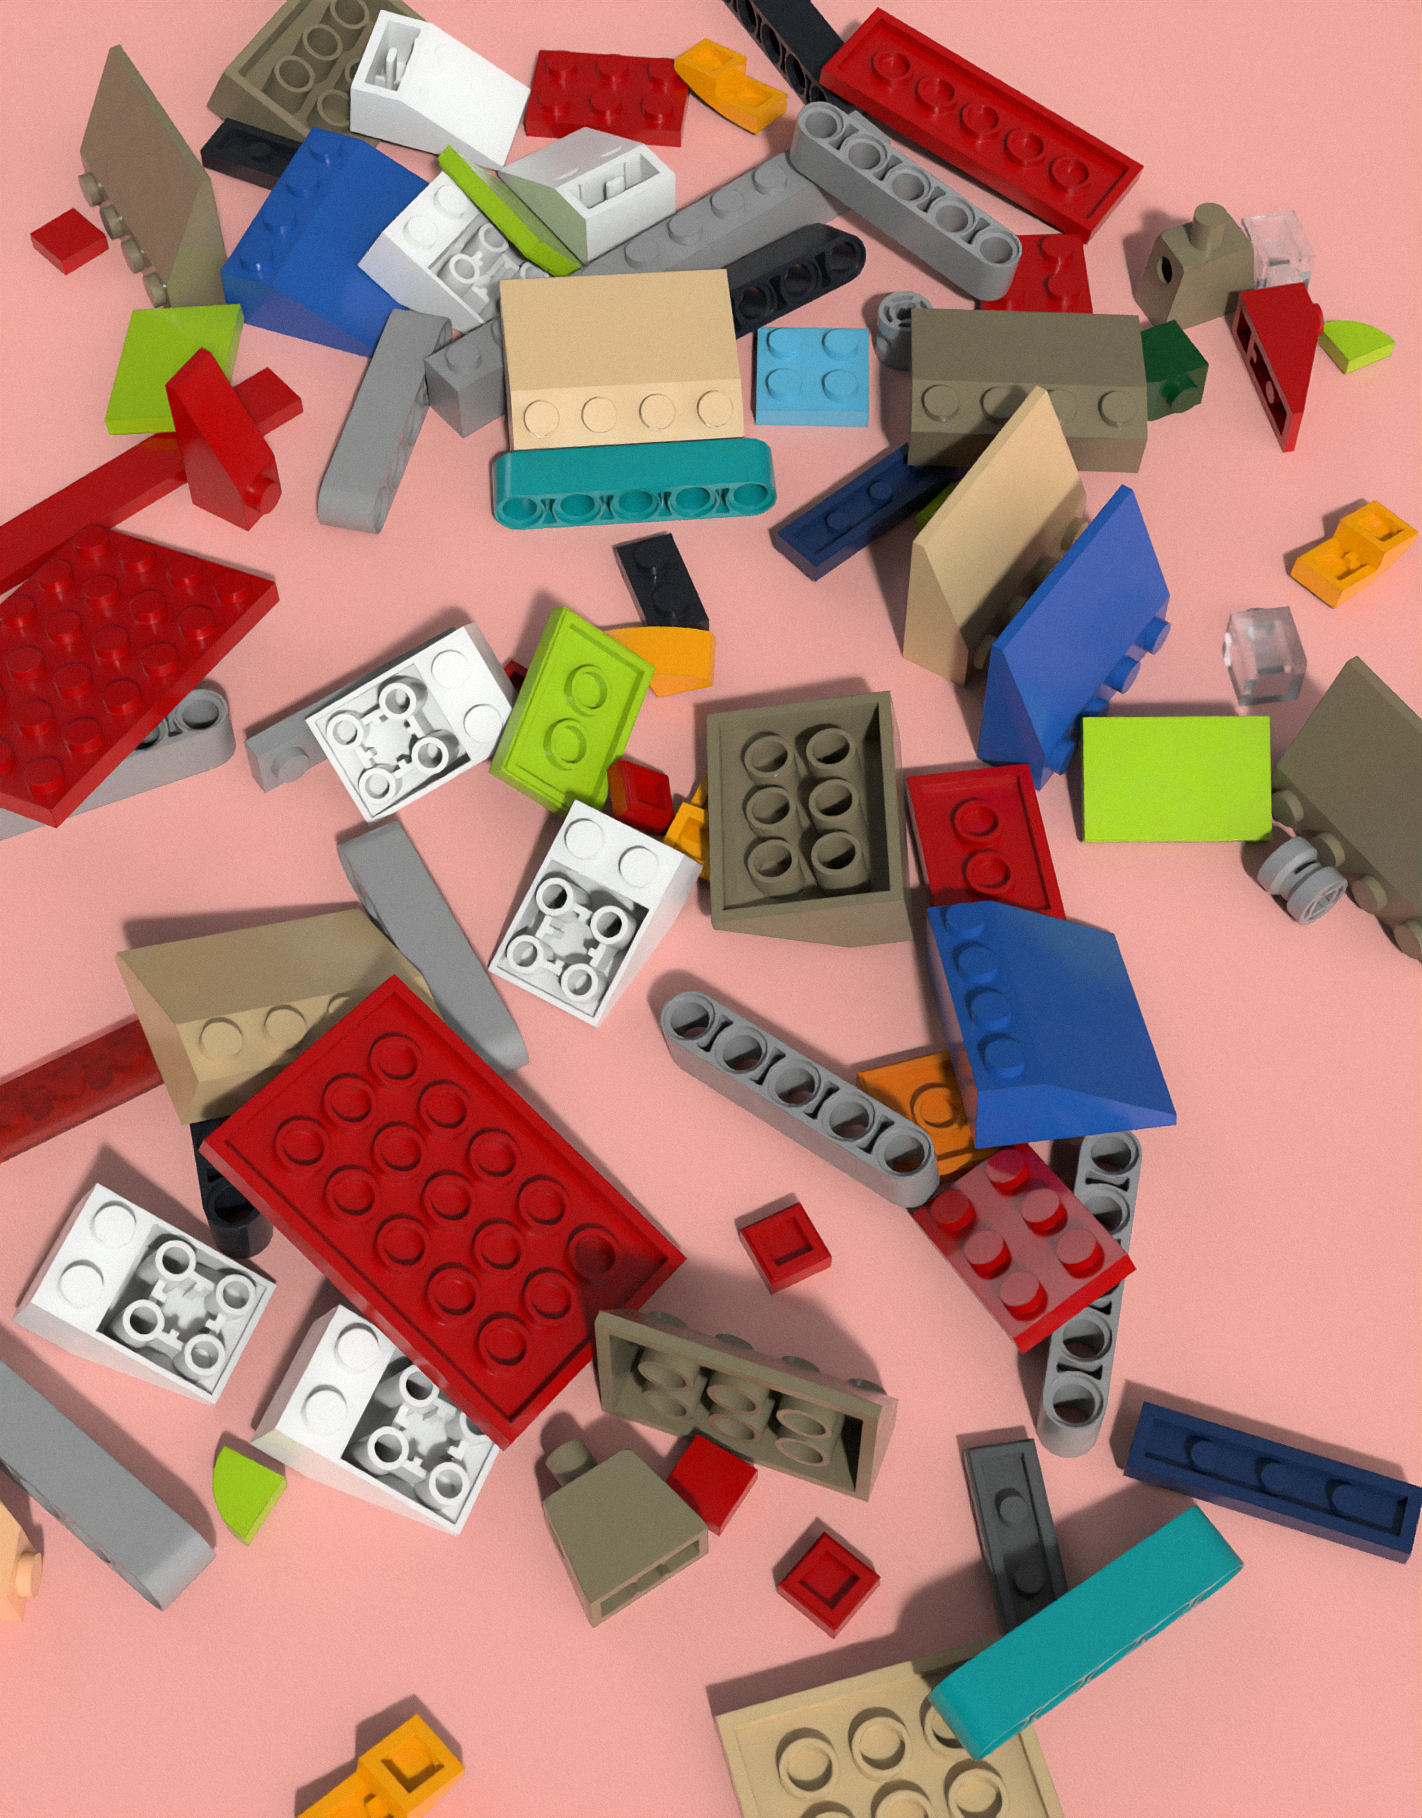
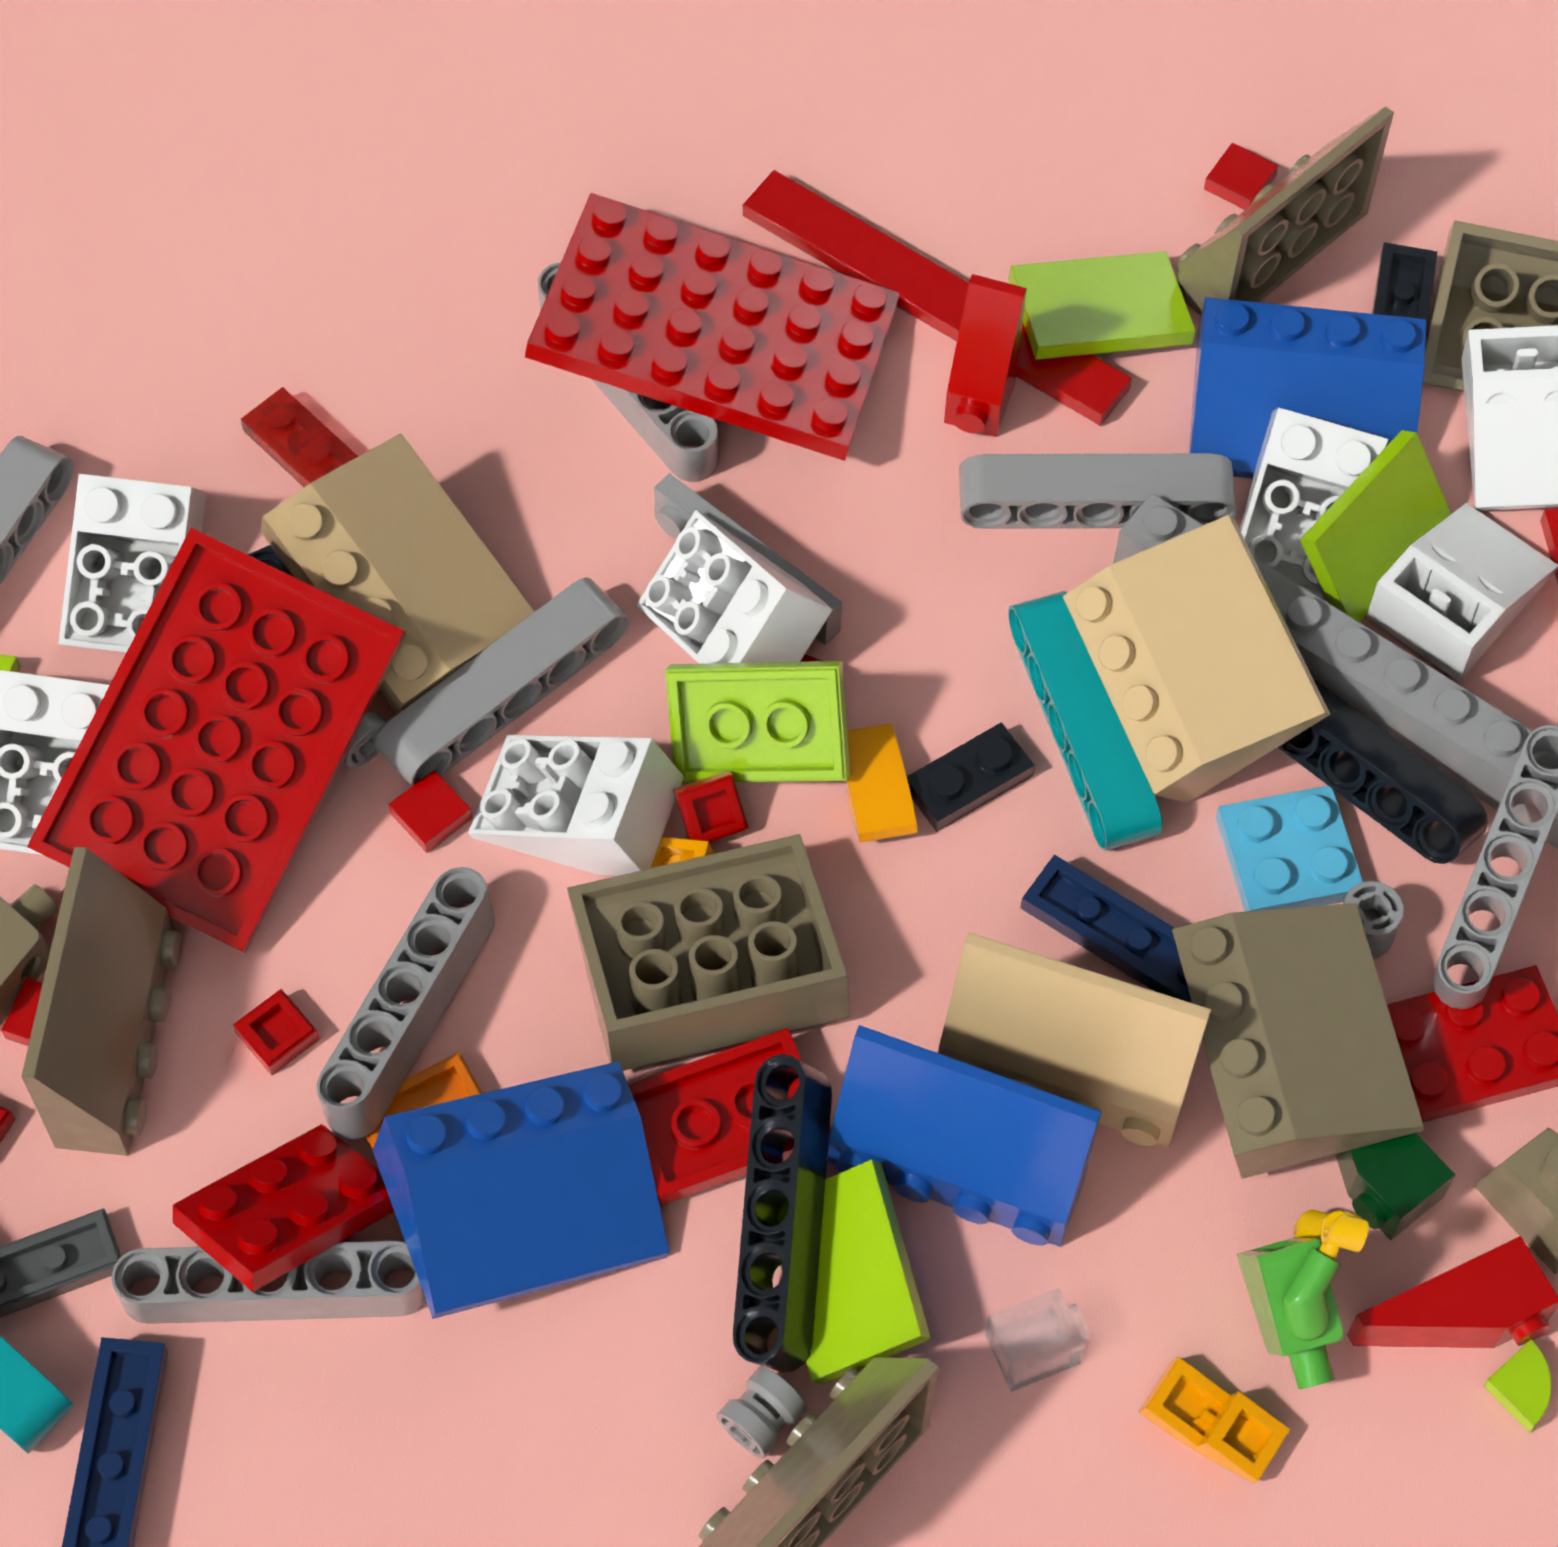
camera: 75 degrees right, 5 degrees up
(562, 1054) = (430, 811): none -> red tile
(1147, 802) = (798, 1237): none -> black beam
(1270, 442) = (1294, 1290): none -> bright green torso

